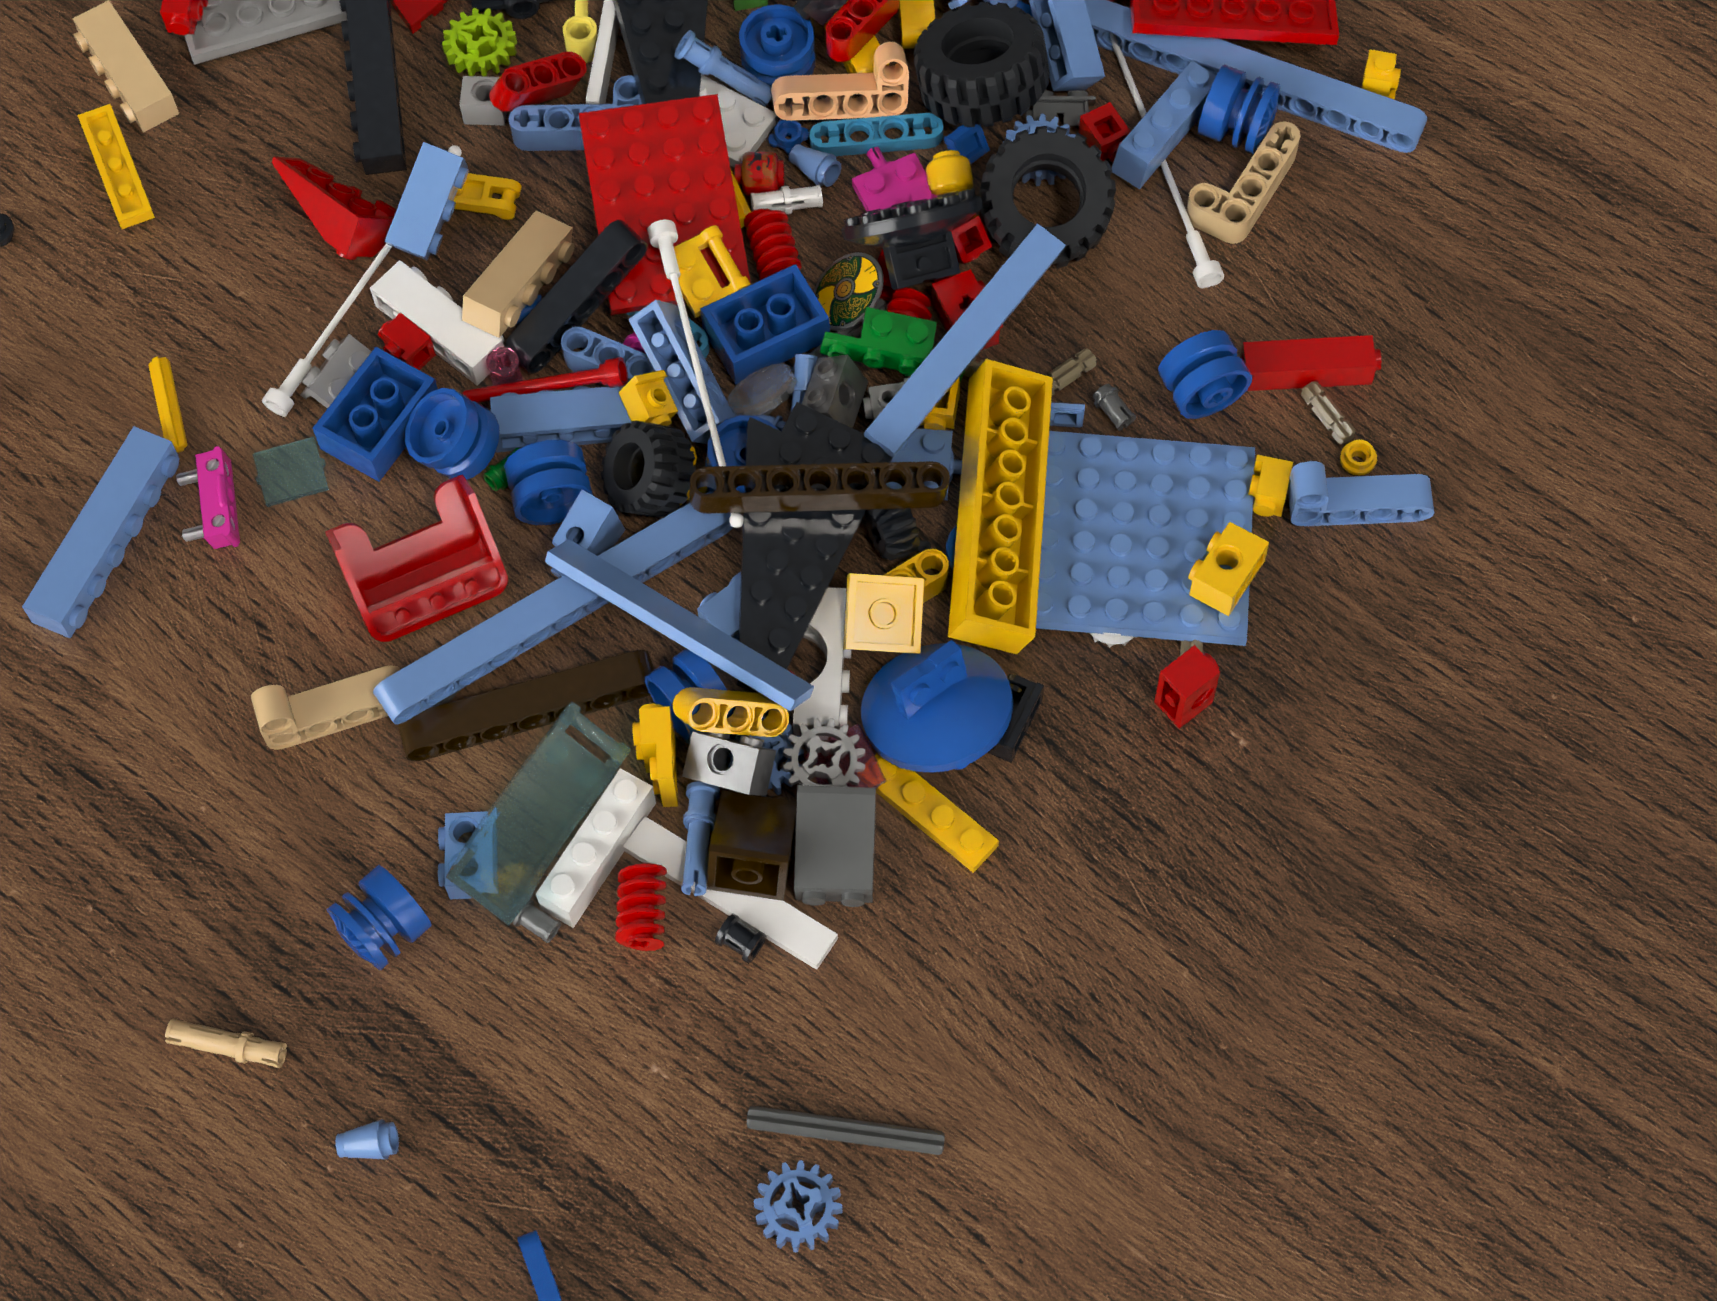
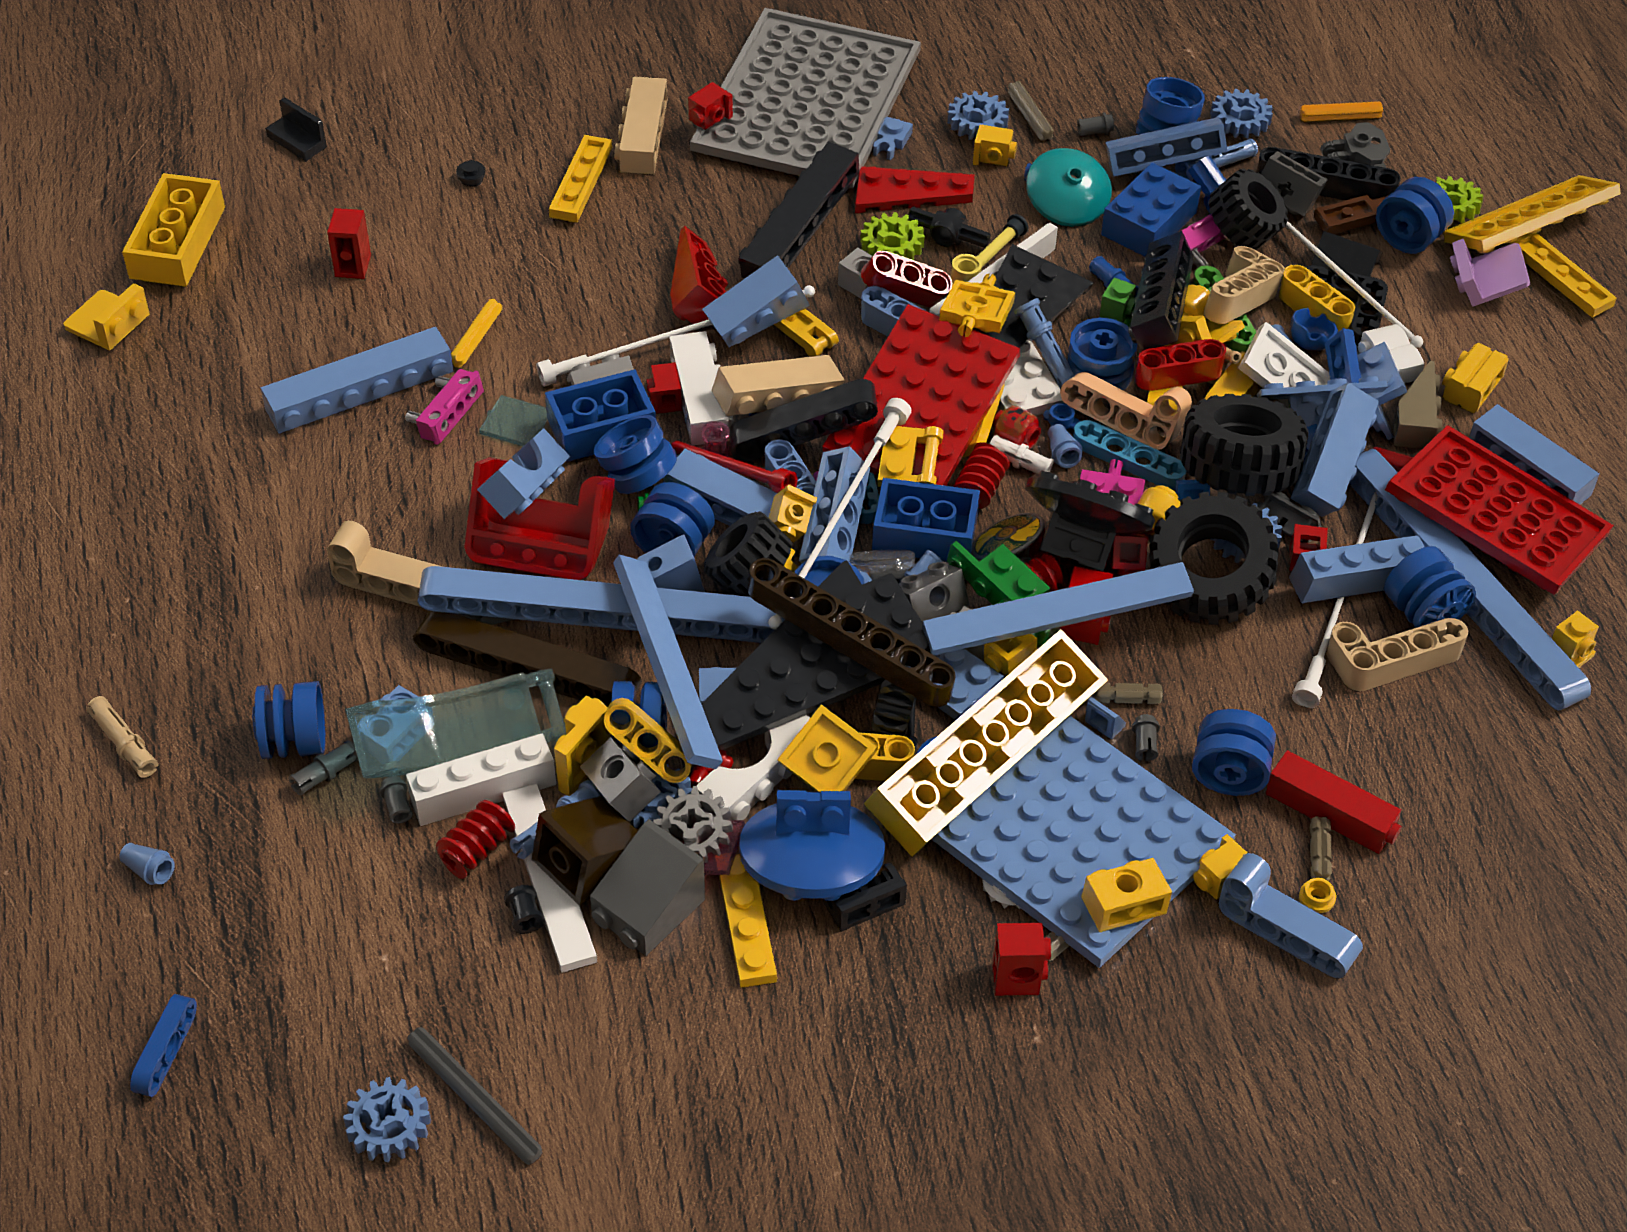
camera: 35 degrees right, 15 degrees down
(385, 546) = (526, 477): none -> medium blue arch
(442, 937) = (323, 767): none -> dark grey pin
(642, 73) = (977, 306): none -> yellow plate

